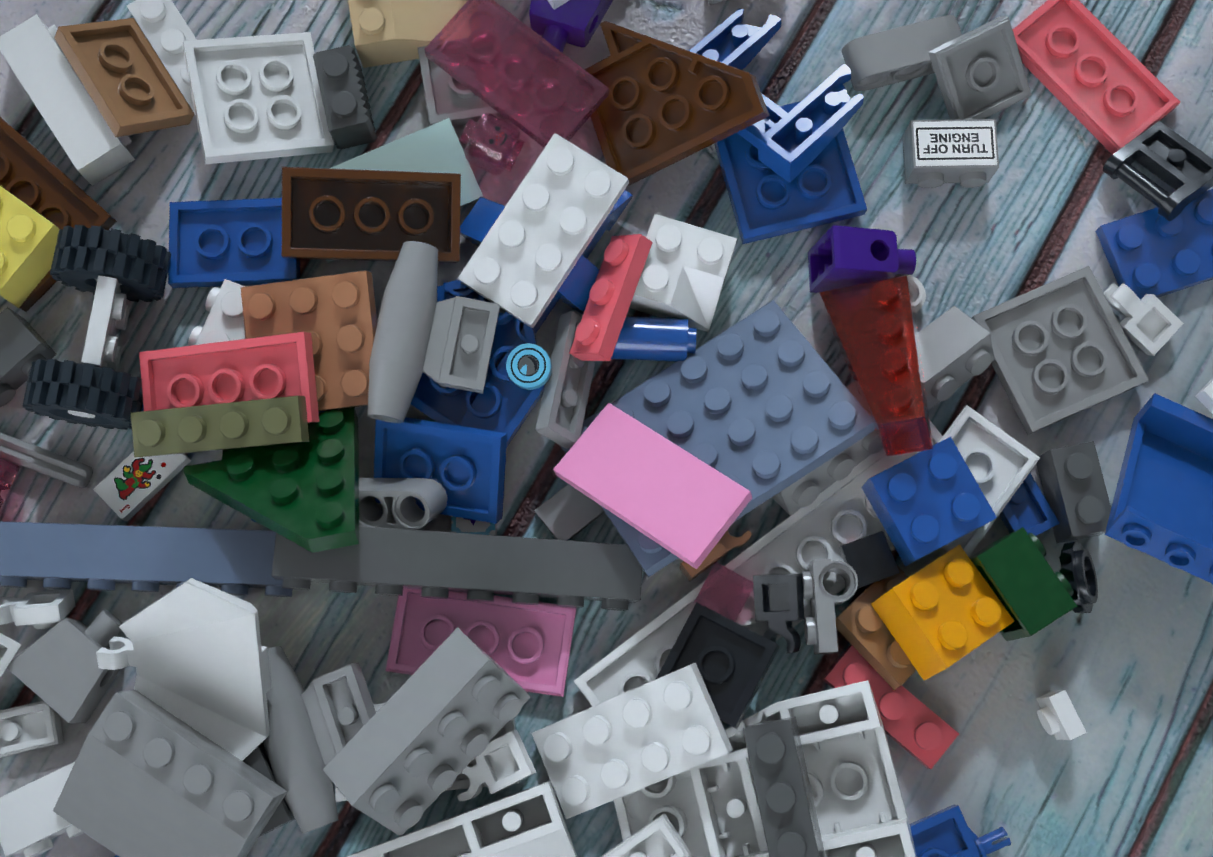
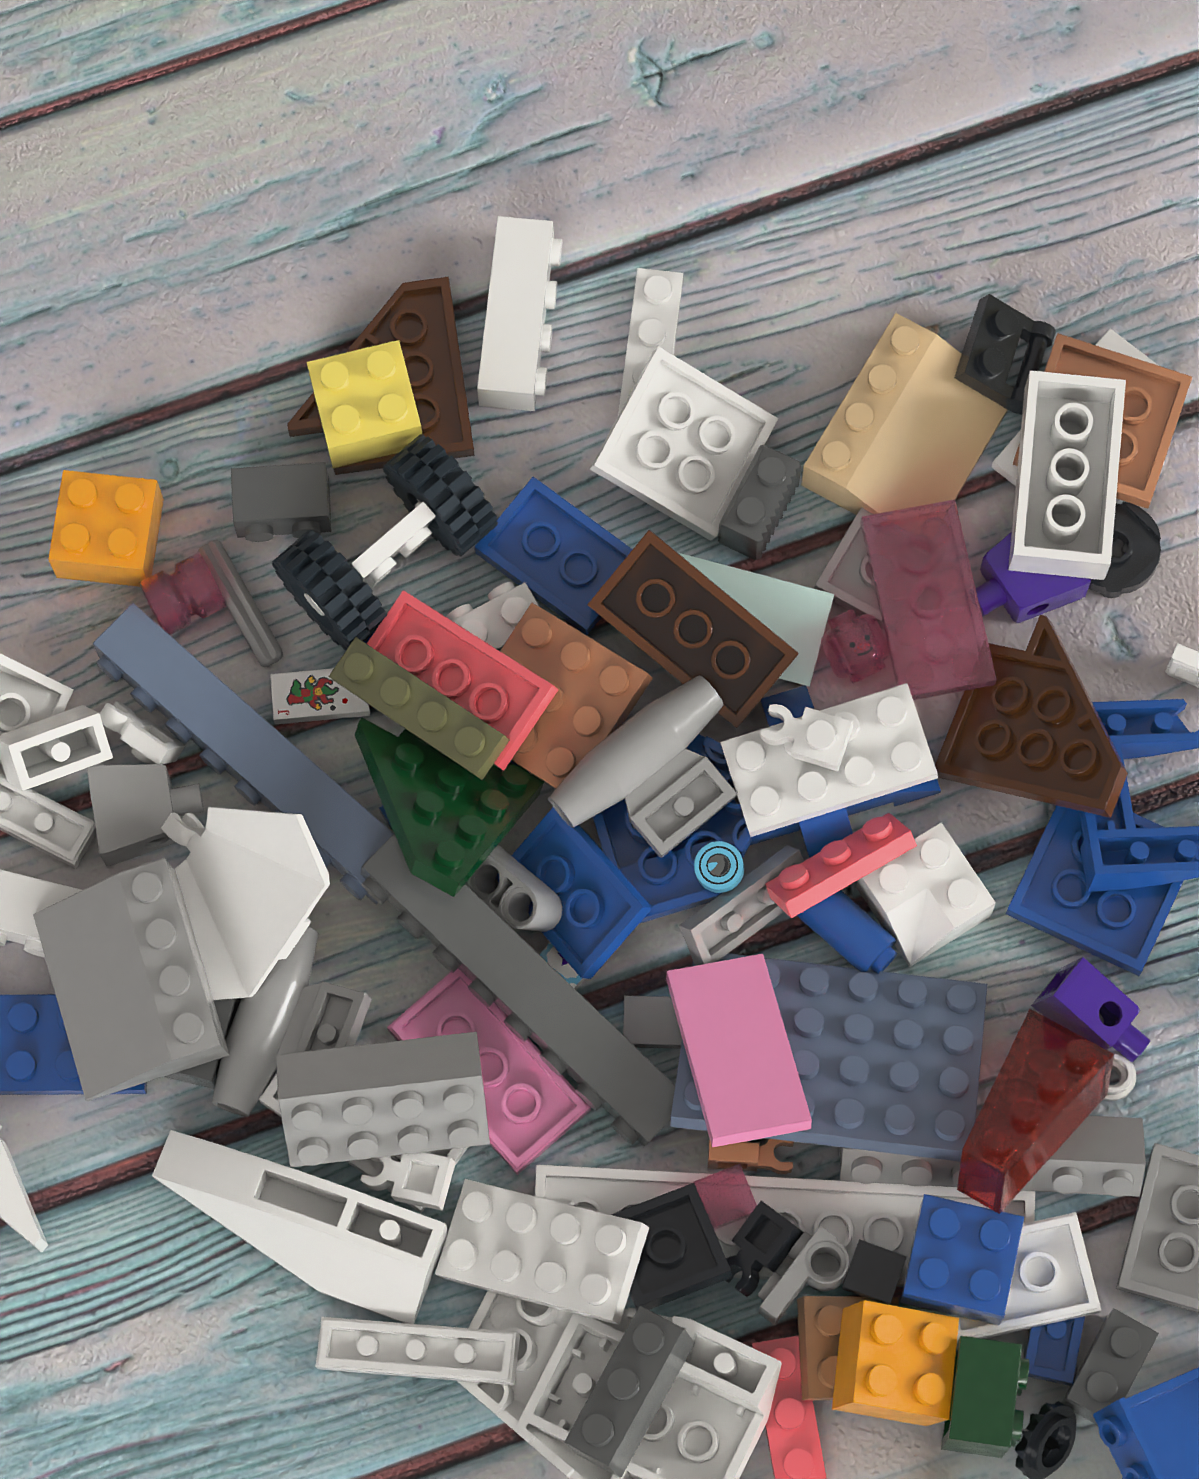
camera: 40 degrees right, 5 degrees down
(124, 76) = (584, 334): medium nougat plate -> none
(523, 219) = (815, 738): none -> white plate

